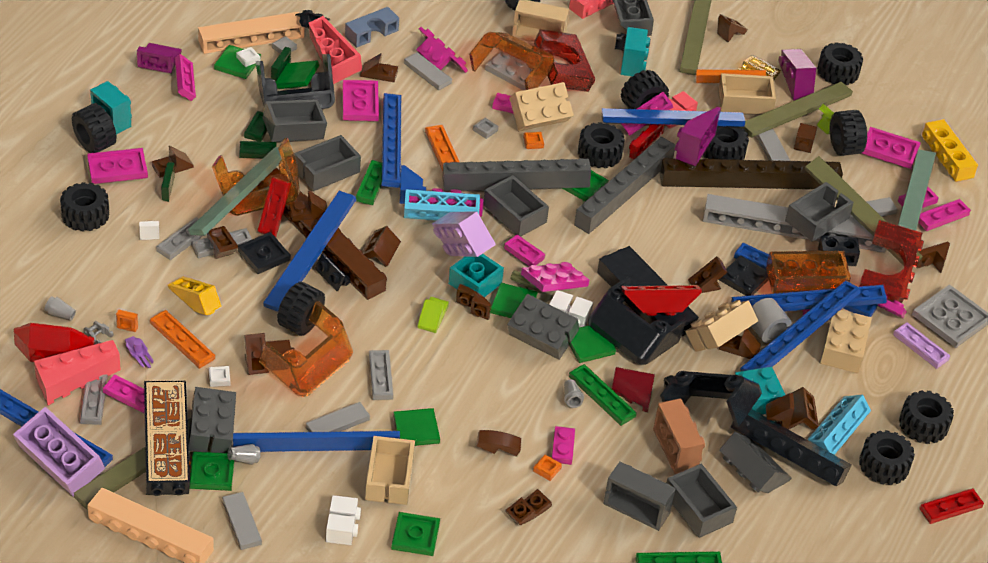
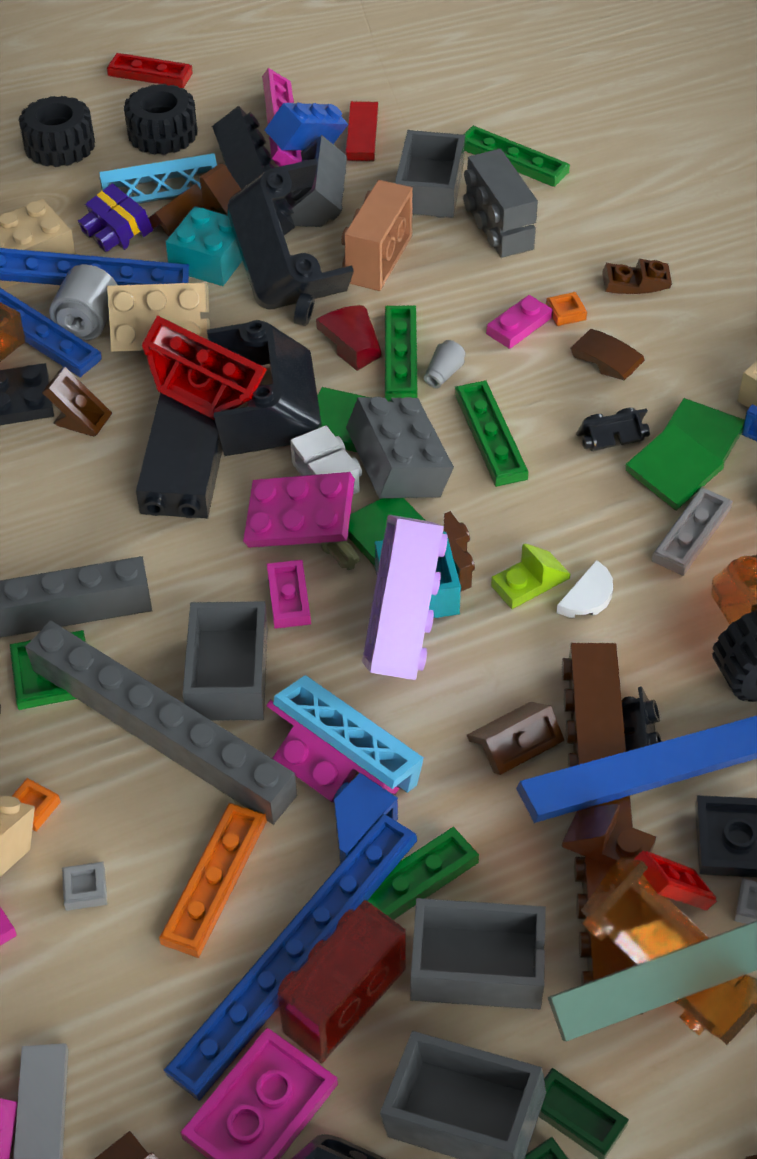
camera: 135 degrees left, 5 degrees up
(366, 129) = (342, 980): none -> clear red brick
(401, 320) = (589, 594): none -> white tile
(413, 396) = (674, 466): none -> green tile
(461, 403) = (625, 423): none -> black hinge
(517, 375) = (491, 433): none -> green tile
(781, 530) = (362, 131): none -> red tile
(792, 477) = (301, 124): none -> blue brick
(824, 493) = (276, 92): none -> dark pink plate
(829, 379) = (116, 217): none -> dark purple hips

